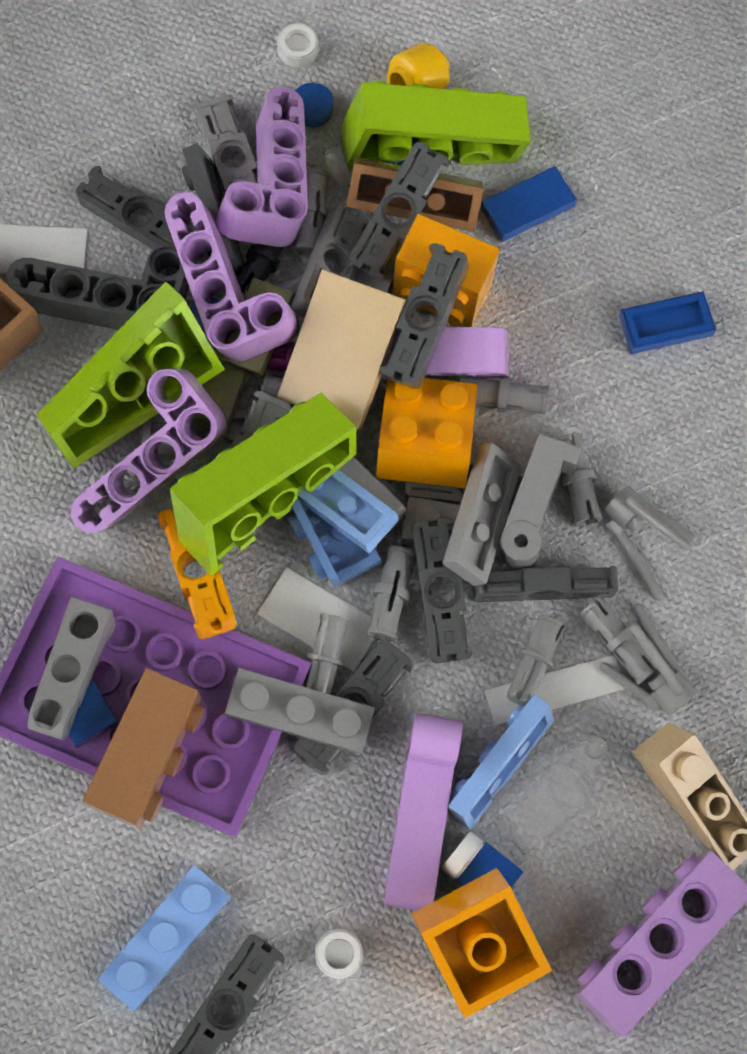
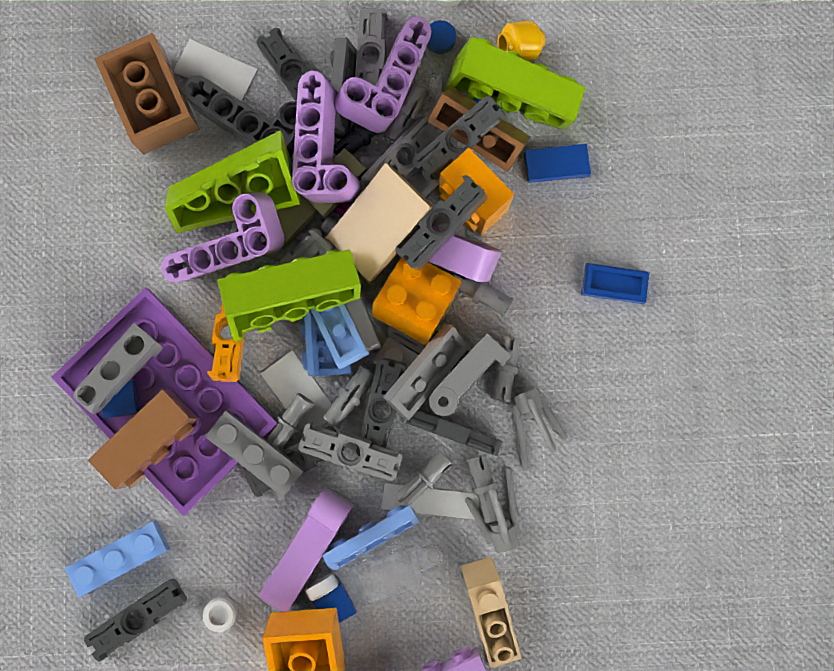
camera: 30 degrees right, 10 degrees up
(395, 661) = (372, 459): none -> light grey piece

